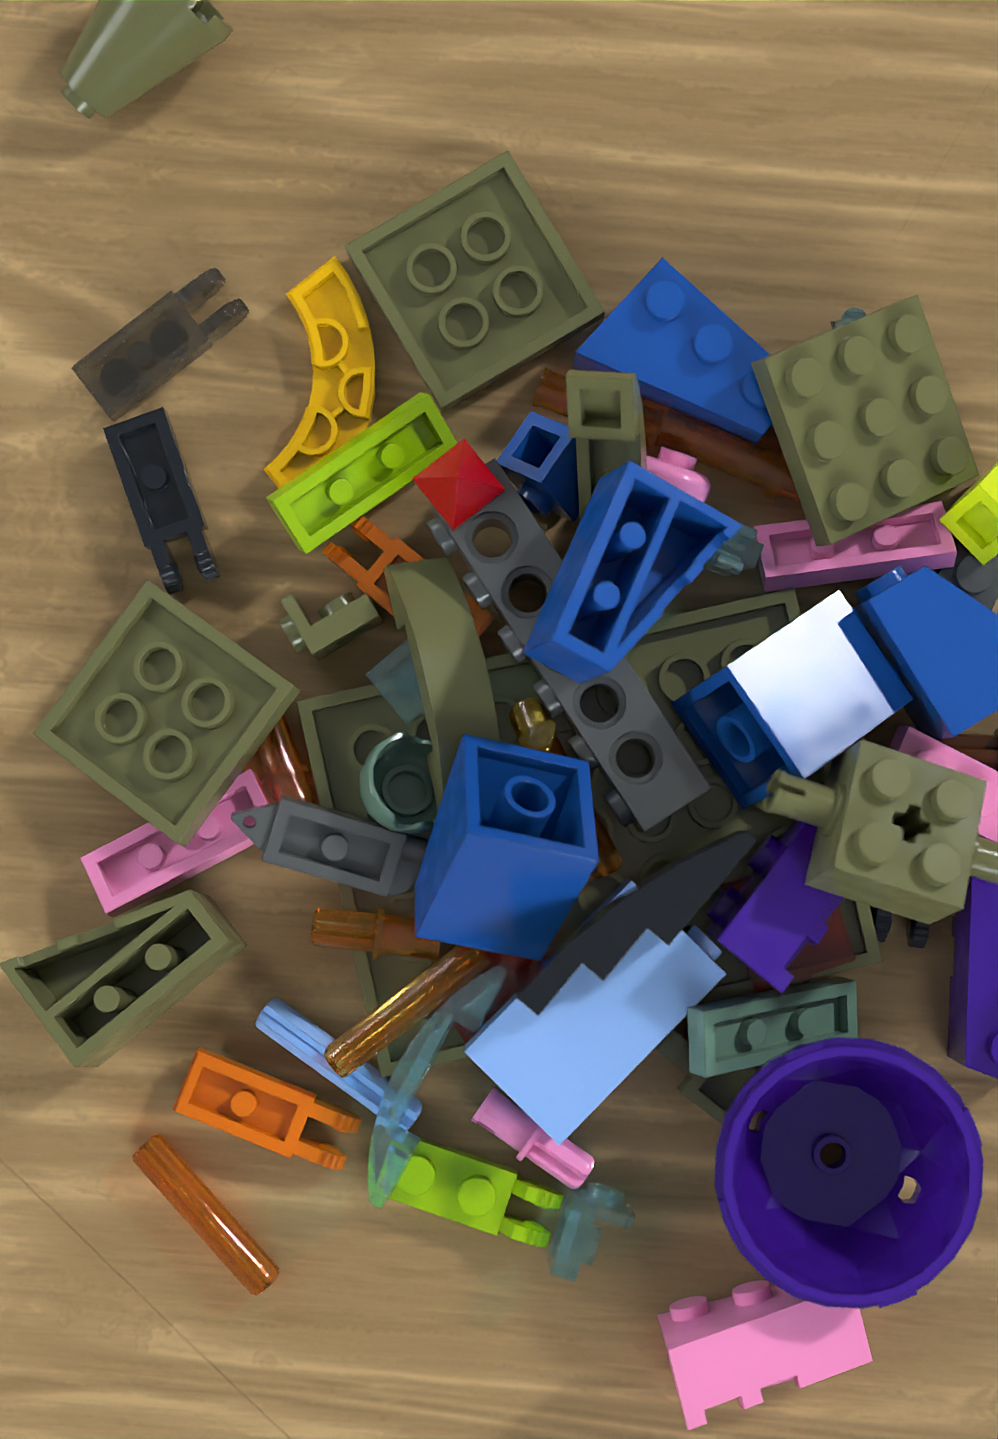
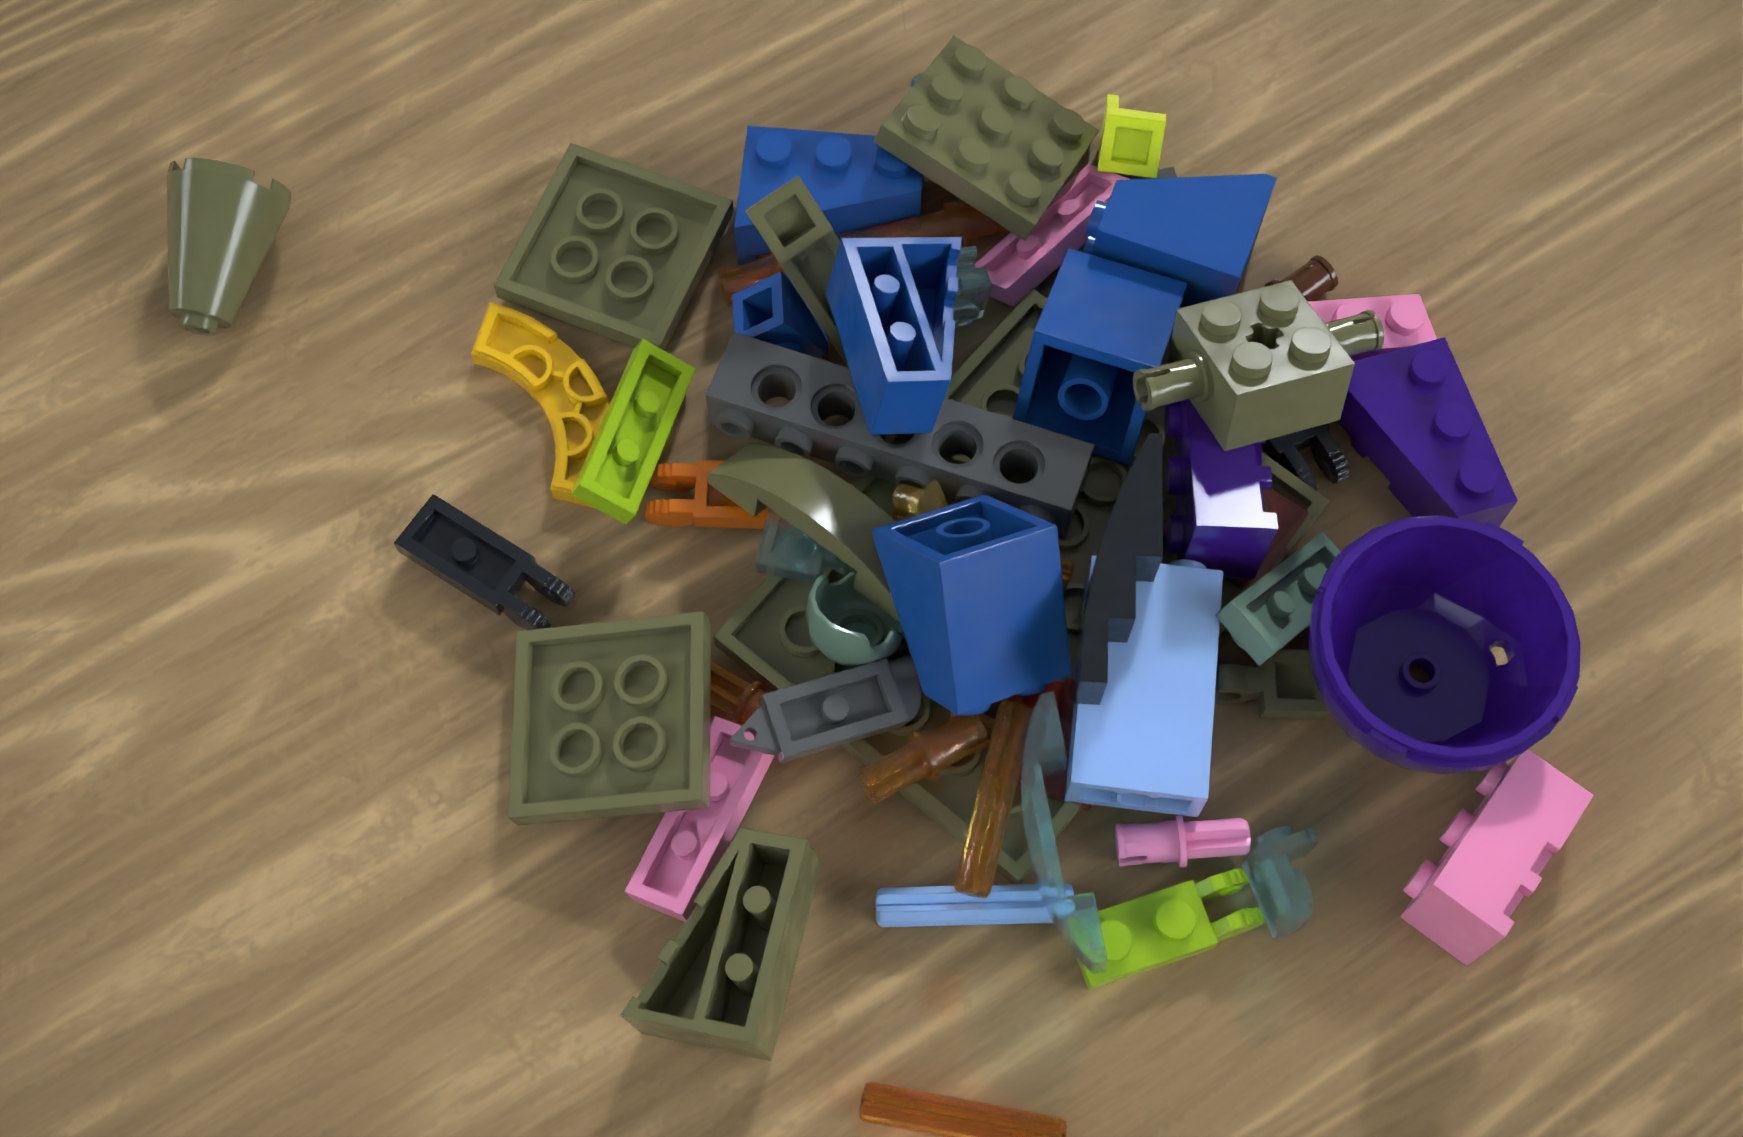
camera: 40 degrees left, 20 degrees down
(156, 345) = (392, 459): clear smoke hinge -> none
(260, 1108) = (937, 988): orange hinge -> none
(341, 623) = (701, 561): olive bracket -> none
(458, 484) = (720, 365): red slope -> none

